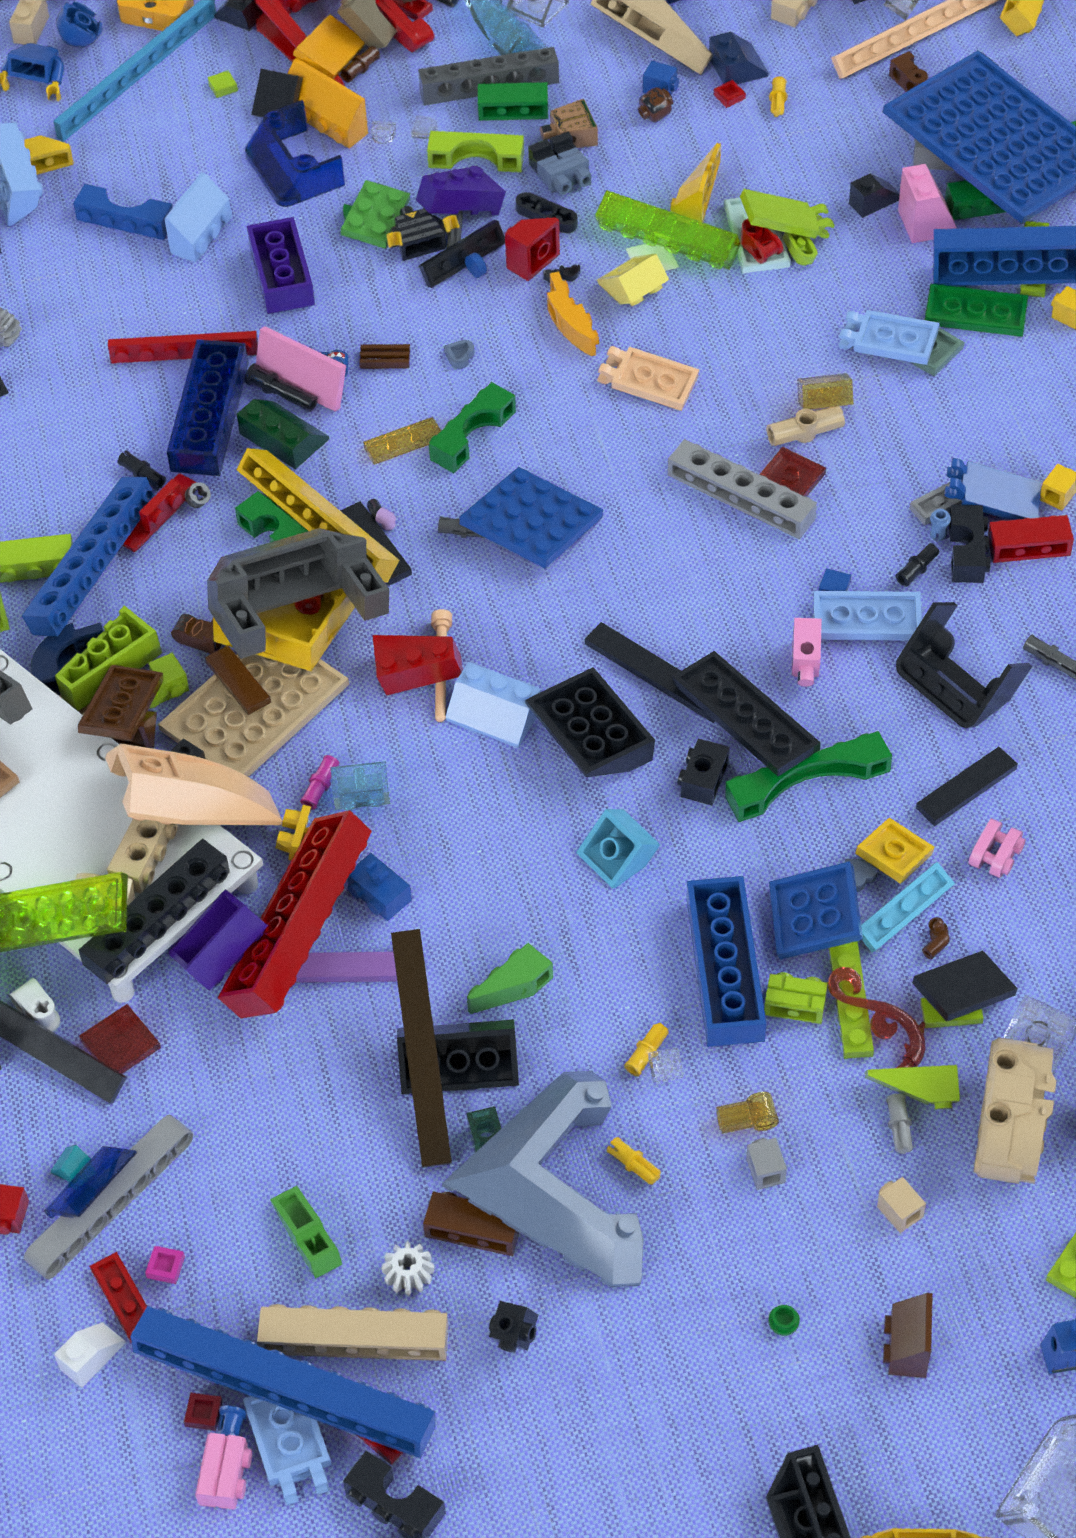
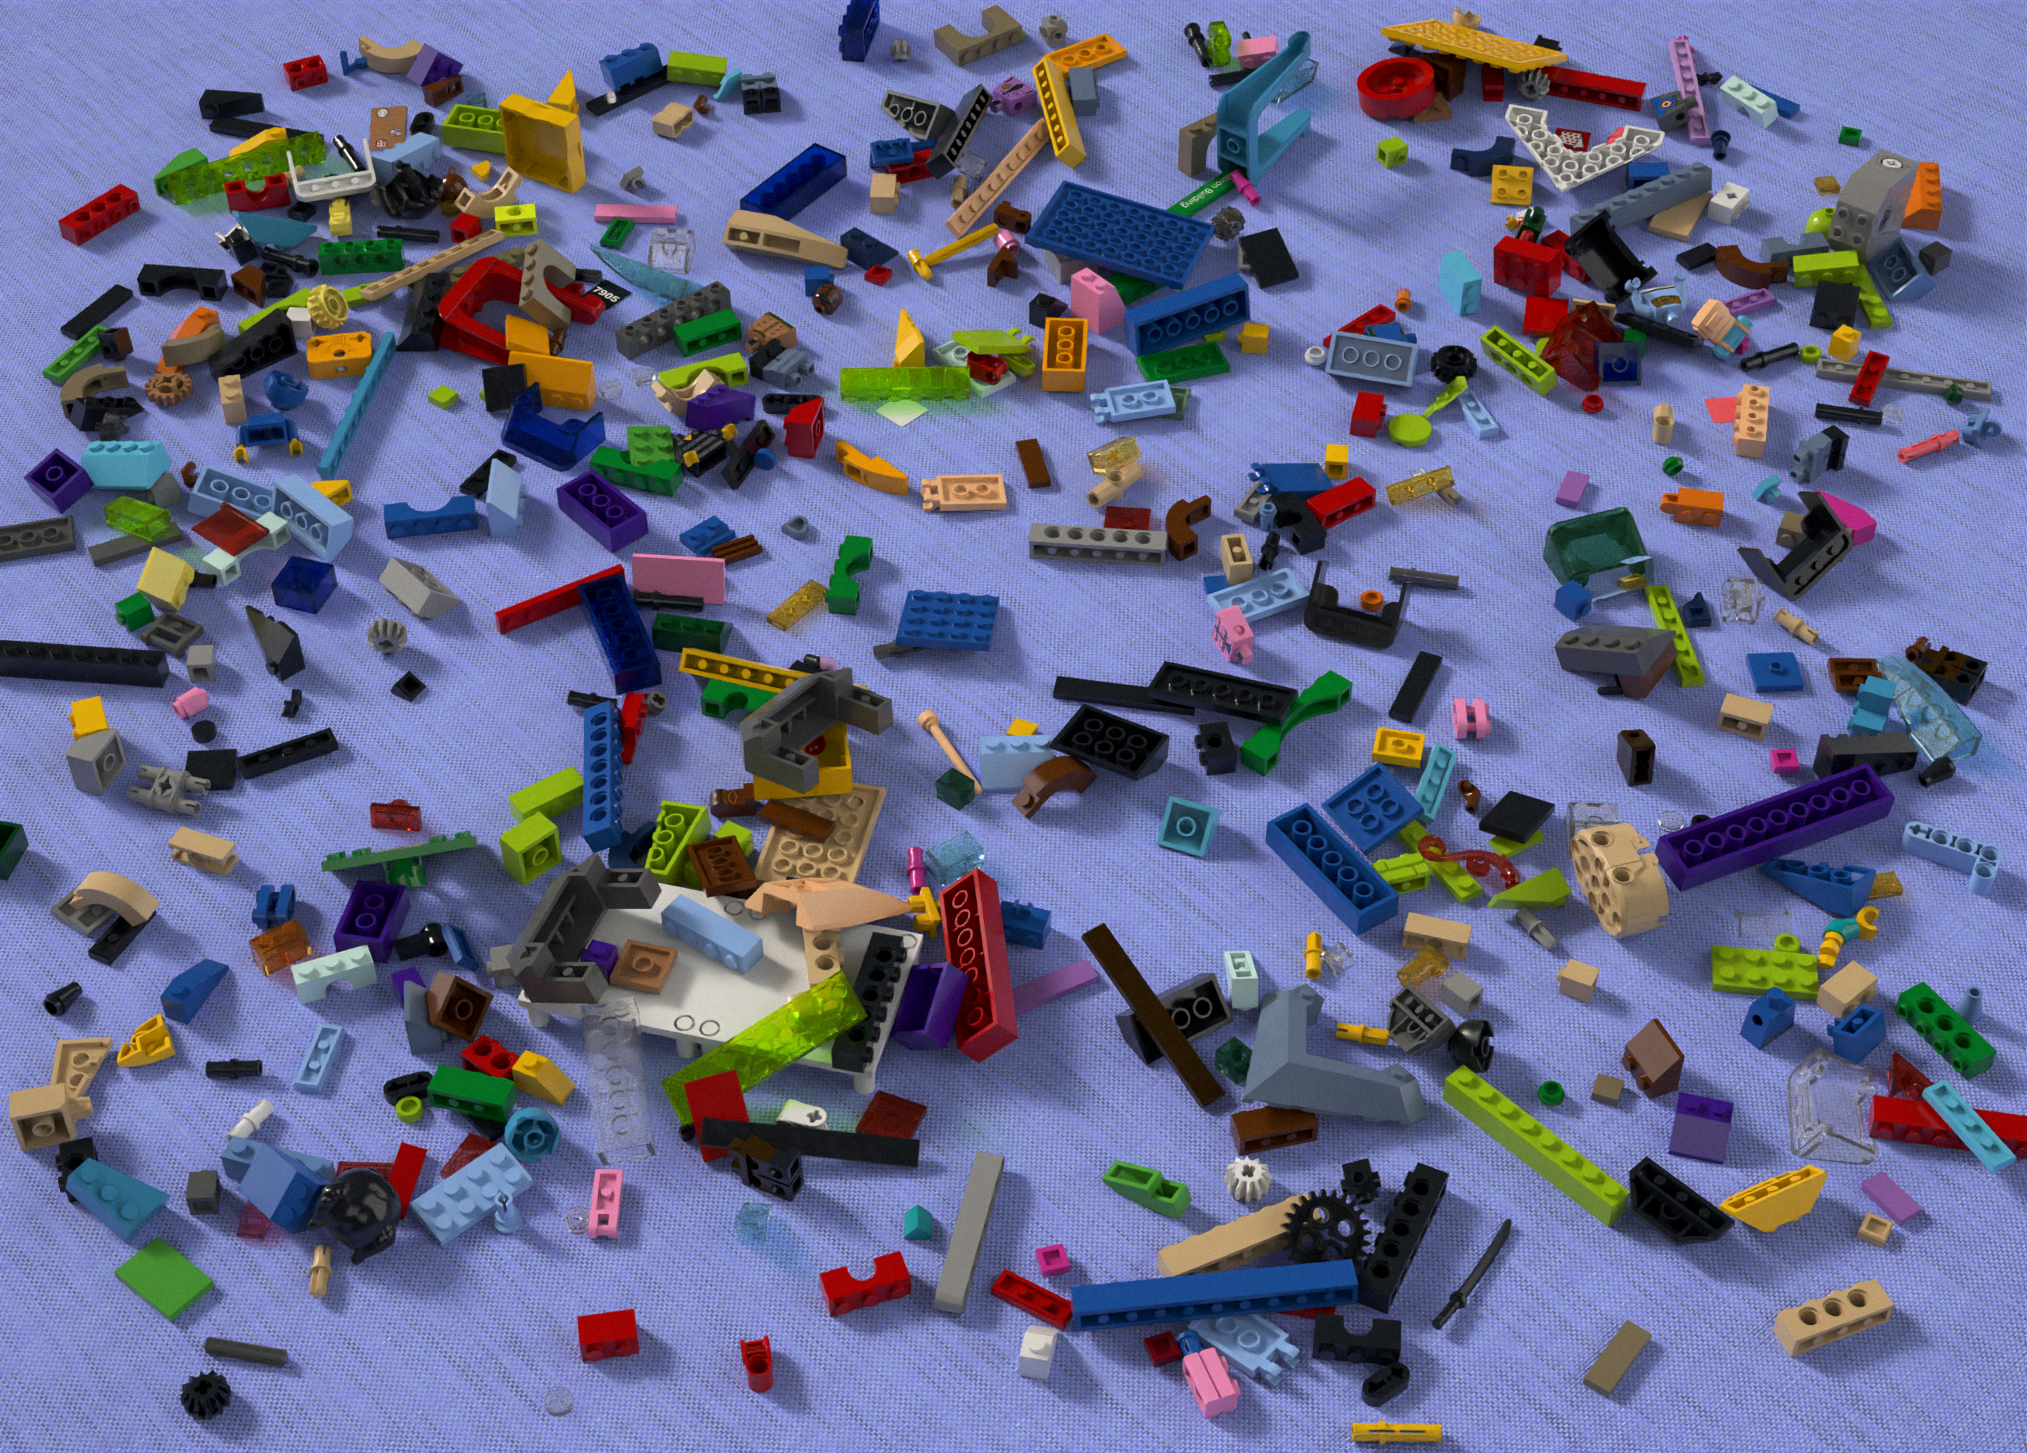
camera: 30 degrees left, 10 degrees down
(61, 773) = (712, 934): none -> light blue brick
(64, 285) = (418, 589): none -> light grey slope
(89, 1182) = (951, 1224): clear blue piece -> none
(223, 177) = (478, 482): none -> black tile
(362, 248) = (660, 477): none -> green arch
(367, 329) = (707, 535): none -> blue plate
(415, 661) = (933, 753): red wedge -> none
(415, 708) = (955, 789): none -> brick
(428, 163) = (676, 399): none -> tan arch
(449, 23) = (609, 293): none -> black sticker
(454, 1352) = (1335, 1211): none -> black gear
(510, 736) = (1049, 778): none -> reddish brown arch
(516, 979) = (1180, 947): bright green slope -> none
(526, 669) = (1022, 727): none -> yellow tile
(530, 1502) = (1458, 1298): none -> black sword
(551, 1043) = (1241, 980): none -> light aqua slope
(562, 1387) = (1401, 1237): none -> black brick
(567, 273) = (831, 448): black piece -> none
(634, 279) = (903, 427): light yellow slope -> none
(693, 1176) = (1417, 1023): none -> dark grey wedge
(722, 1373) = (1536, 1145): none -> lime brick
(734, 1229) = (1471, 1045): none -> pearl dark grey cylinder
(741, 368) = (1032, 463): none -> reddish brown tile
(786, 1084) = (1444, 935): none -> tan piece
(834, 88) = (962, 244): none -> yellow axle
(843, 493) = (1180, 538): none -> reddish brown arch
(848, 1343) = (1607, 1090): none -> dark tan tile
(852, 255) = (1065, 354): none -> light orange brick
(856, 127) = (1002, 265): none -> reddish brown slope
(869, 561) = (1236, 559): none -> tan brick
(875, 24) = (958, 191): none -> tan pin
(879, 97) = (1006, 238): none -> bright pink brick
(912, 1437) = (1701, 1128): none -> dark purple slope
(989, 665) = (1371, 600): none -> orange tile

